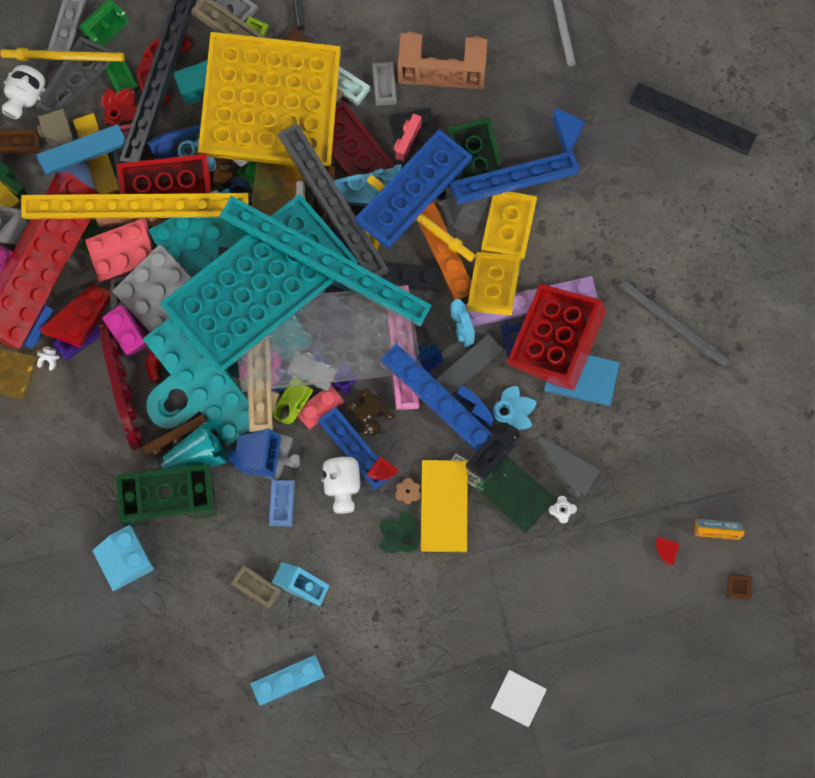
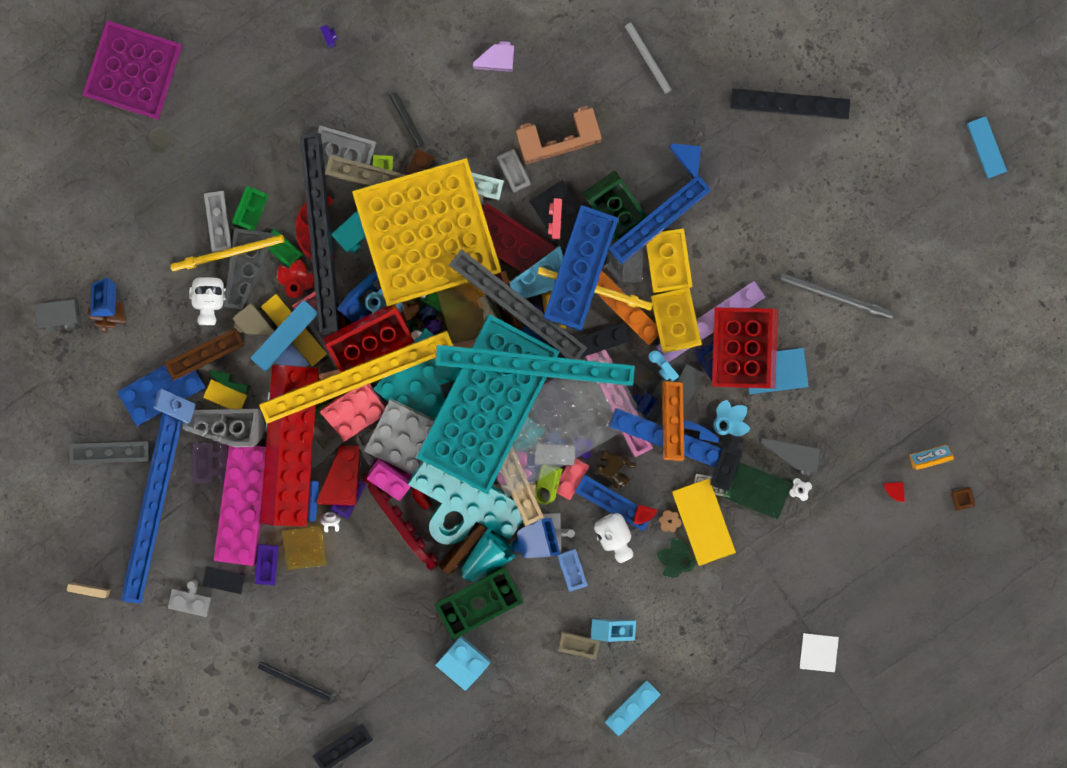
camera: 25 degrees left, 15 degrees up
(450, 381) = (673, 421): none -> orange tile

